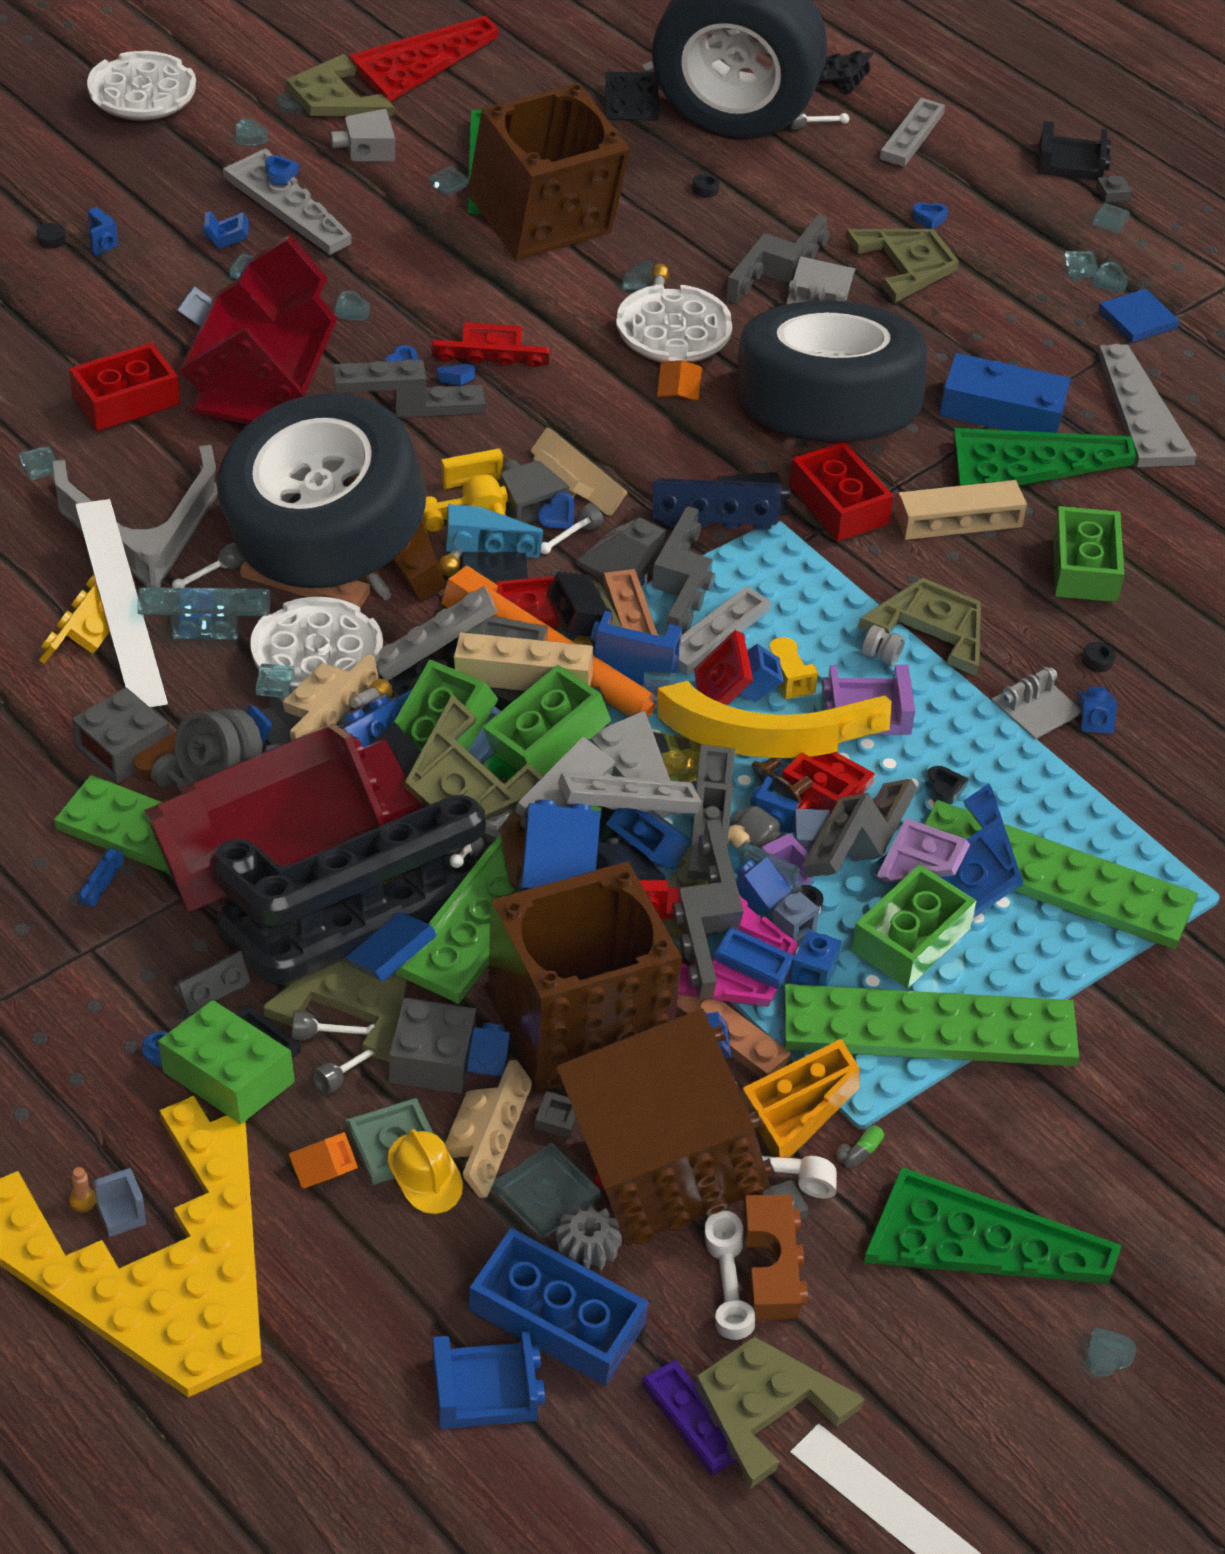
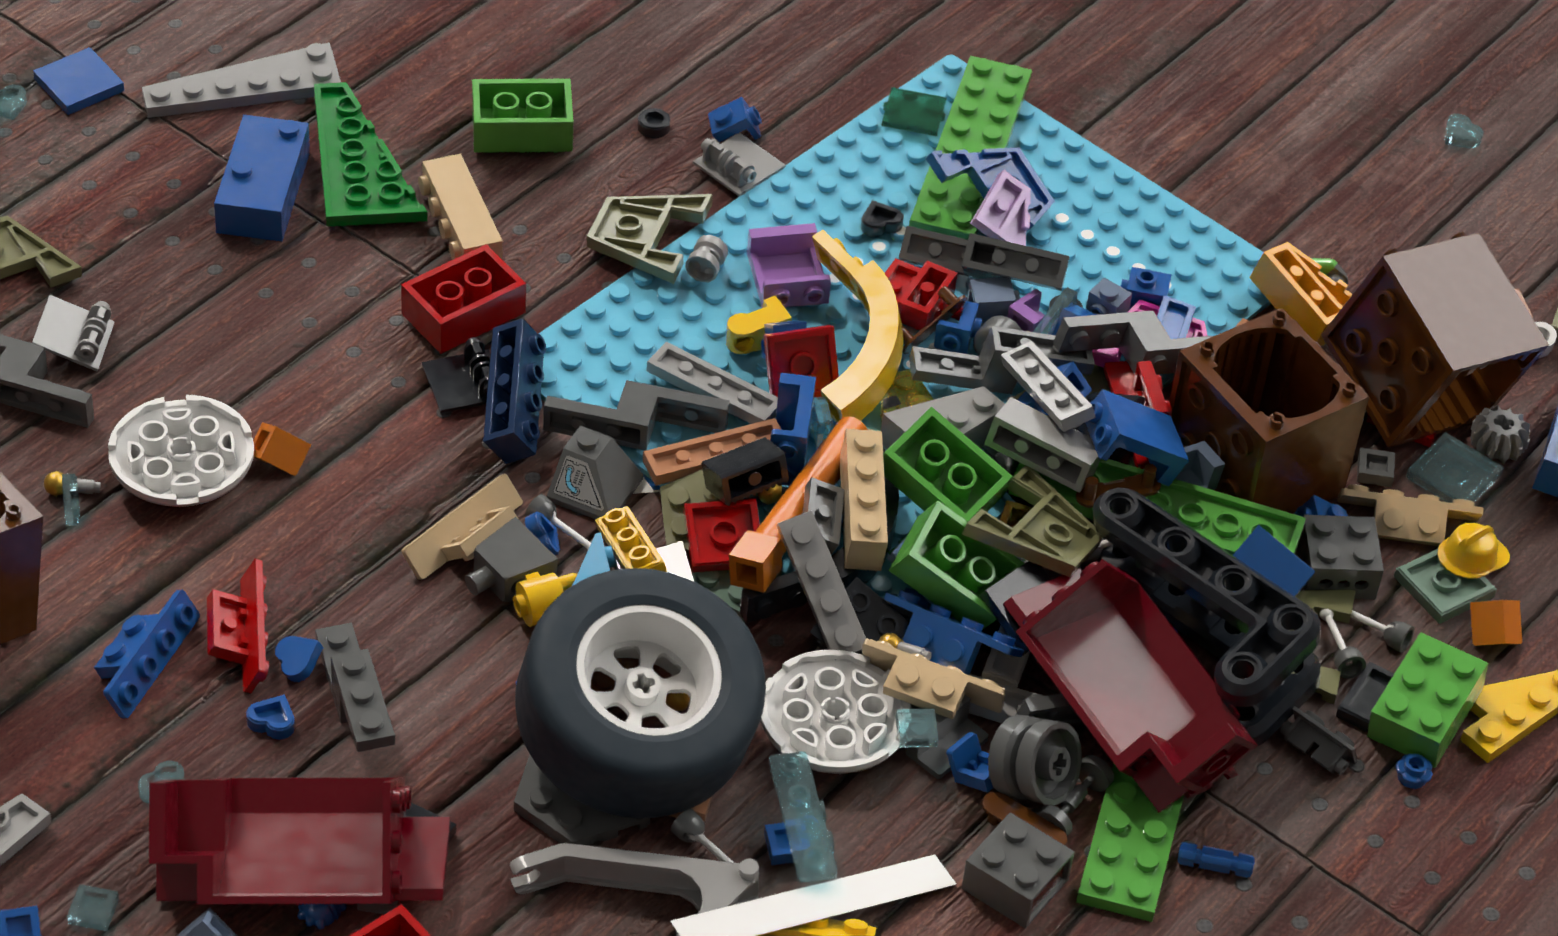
camera: 100 degrees left, 0 degrees up
(460, 469) = (483, 619): yellow tile -> none
(472, 299) = (143, 651): none -> blue bracket
(533, 555) = (629, 540): none -> yellow tile
(831, 371) = (322, 322): black wheel -> none
(913, 926) = (1089, 224): bright green brick -> none
(931, 1024) = (1183, 224): bright green plate -> none
(959, 1230) = (1385, 199): green wing -> none
(1114, 839) = (914, 111): none -> clear green piece

